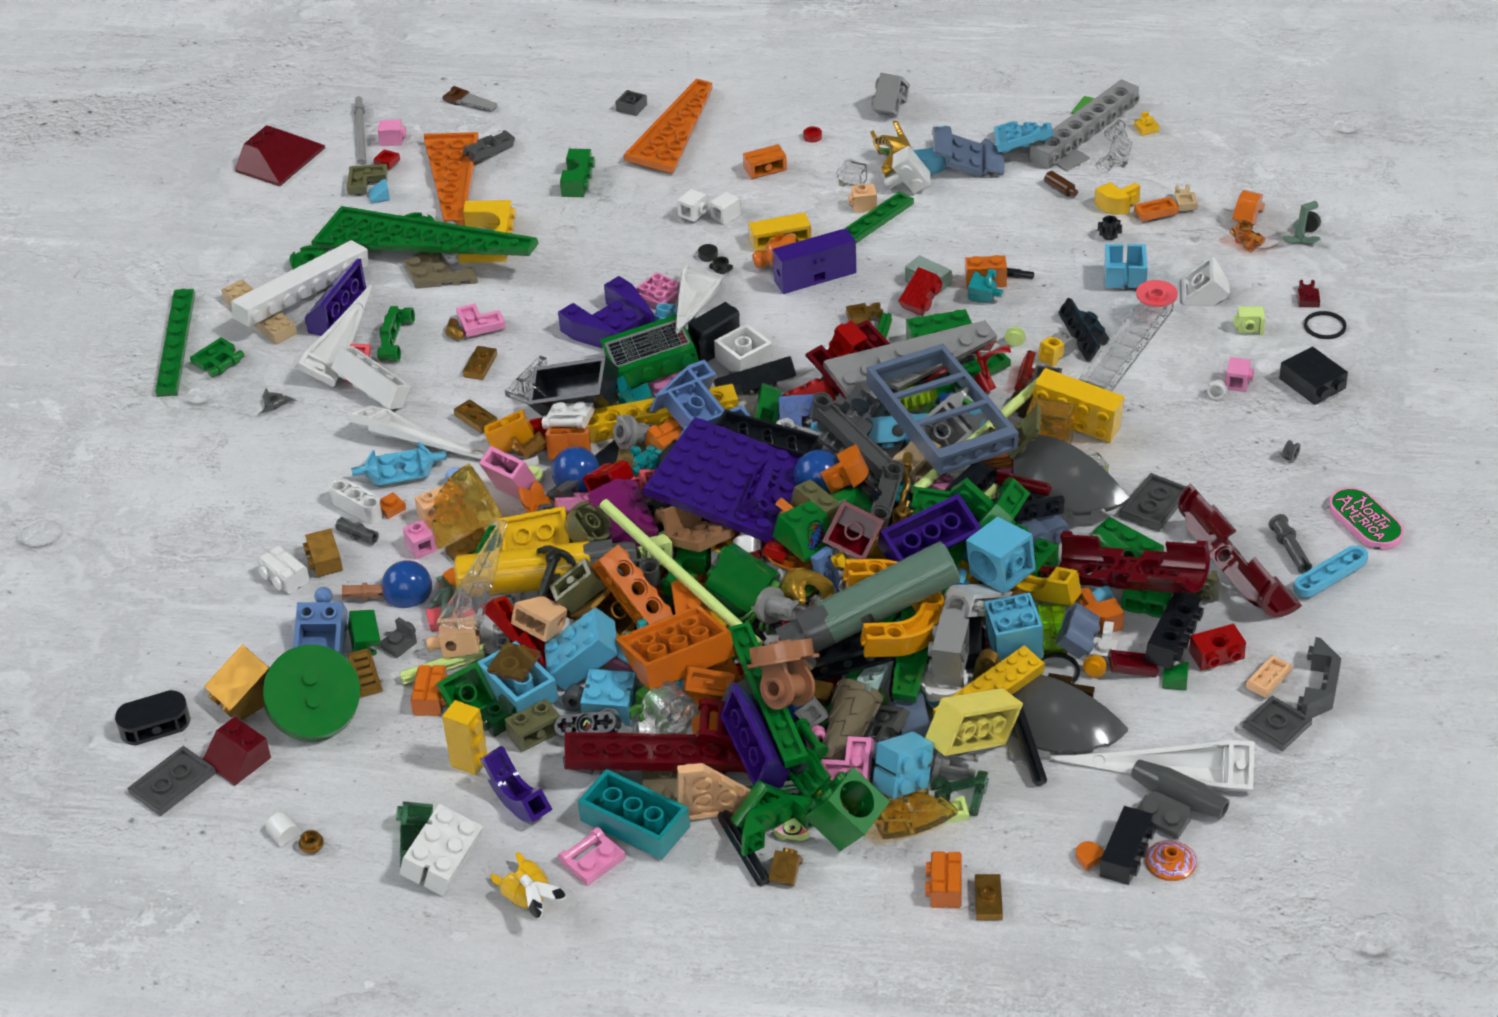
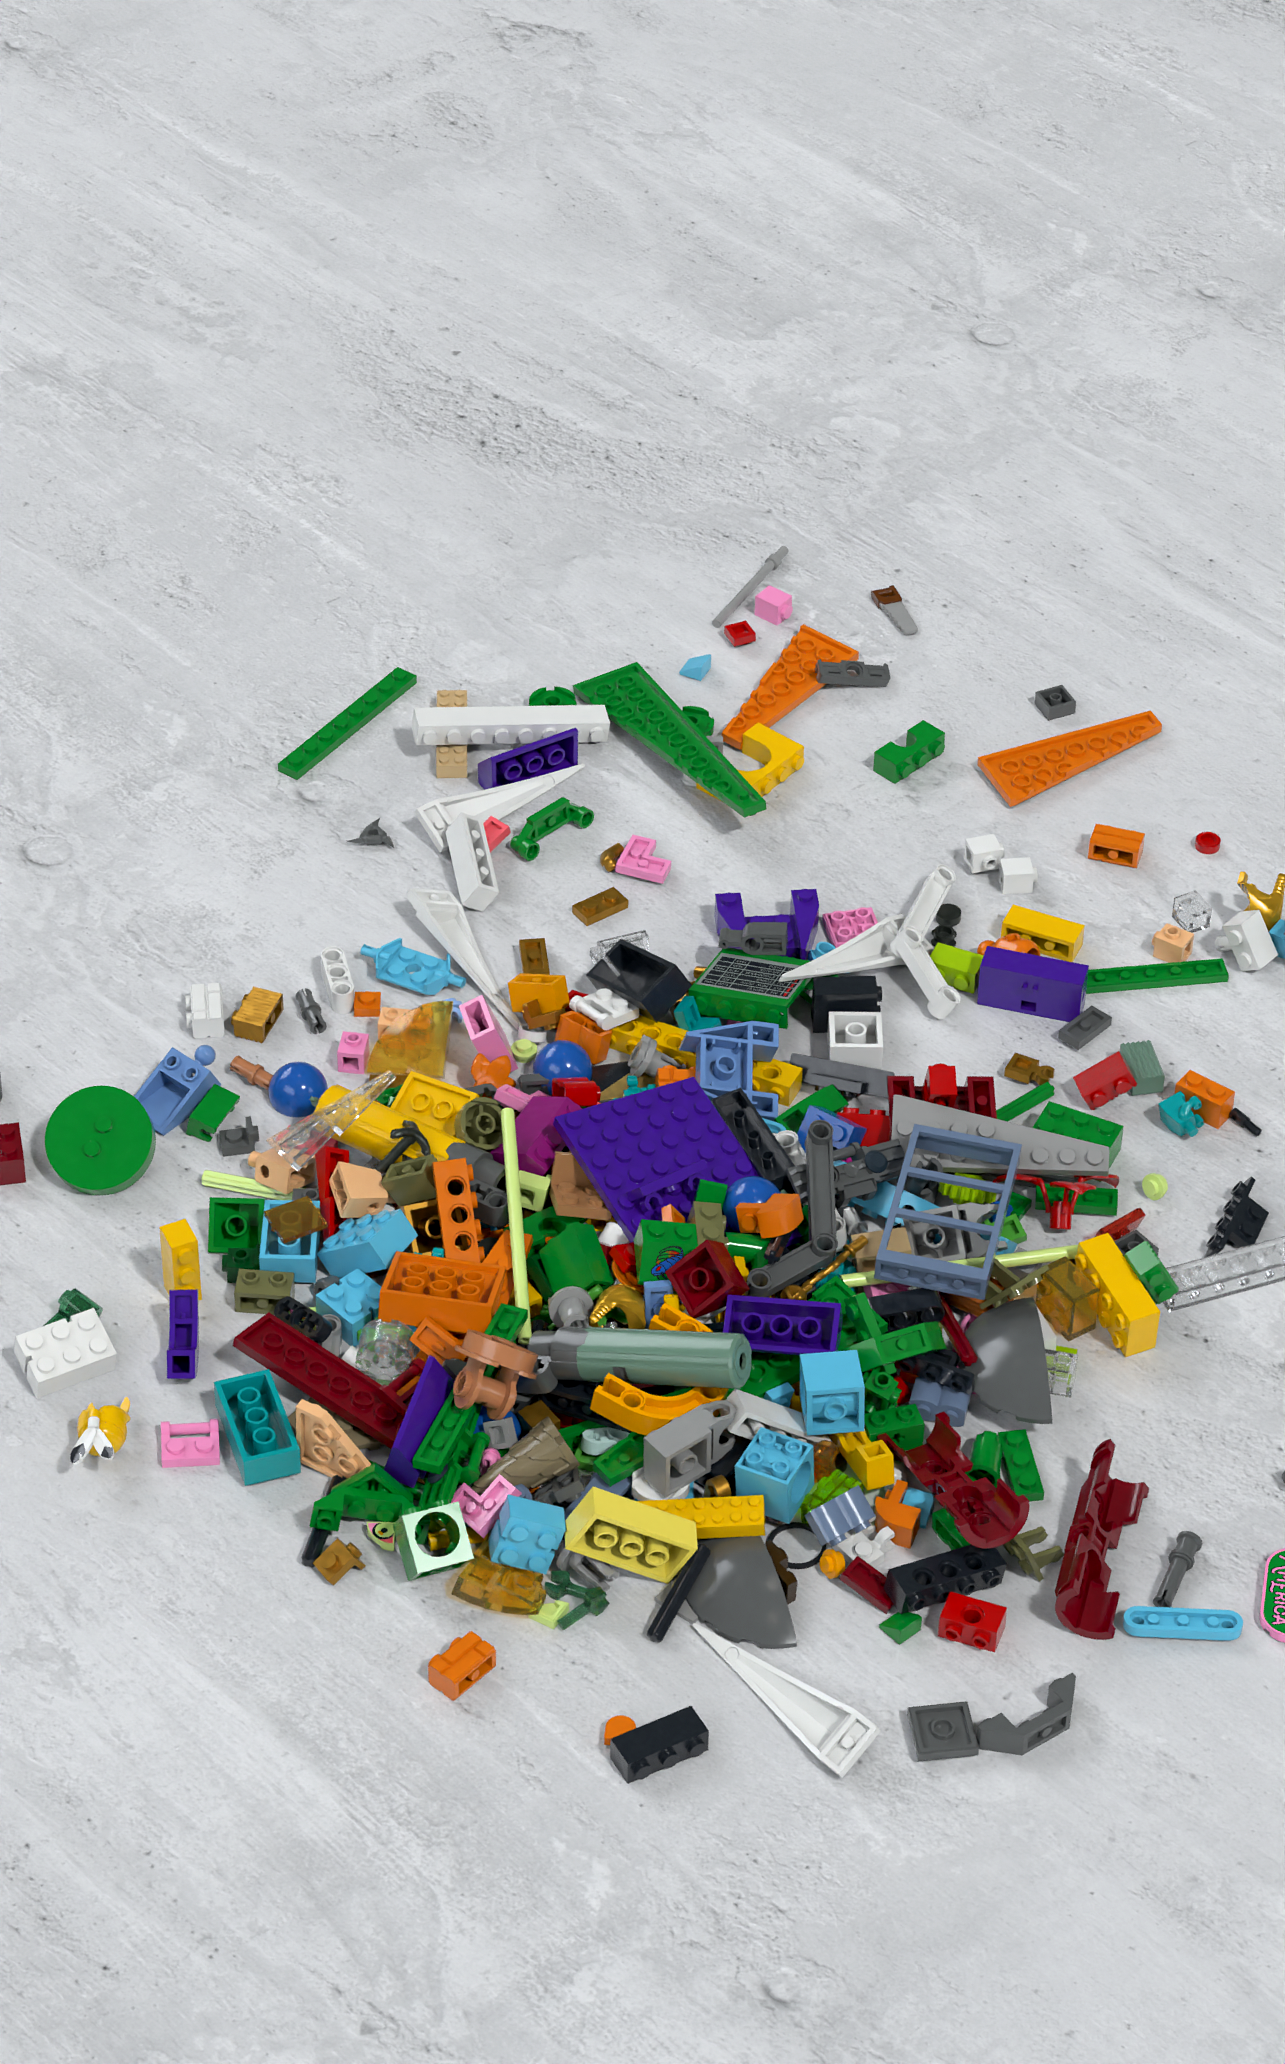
camera: 35 degrees right, 0 degrees up
(212, 355) = (363, 755): green plate -> none
(239, 684) = (51, 1087): slope -> none
(275, 155) = (640, 570): dark red slope -> none
(361, 175) = (696, 638): olive plate -> none
(364, 659) = (179, 1137): pearl gold slope -> none
(426, 695) = (196, 1205): orange brick -> none
(431, 270) = (658, 781): dark tan wing -> none
(622, 320) = (770, 938): none -> dark grey piece
(716, 273) = (909, 941): none -> white piece
(751, 278) = (958, 967): none -> lime brick
(788, 480) = (710, 1192): none -> green slope
(867, 271) = (1085, 1027): none -> dark grey plate
(988, 897) = (486, 1707): pearl gold plate -> none
(1056, 347) = (1183, 1222): yellow leg -> none
(1090, 373) = (1151, 1272): none -> green brick
(1153, 502) = (1075, 1442): dark grey tile -> none
(1171, 860) = (691, 1788): dish -> none
(1175, 797) = (761, 1730): dark grey plate -> none
(1269, 676) = (990, 1682): light nougat plate -> none

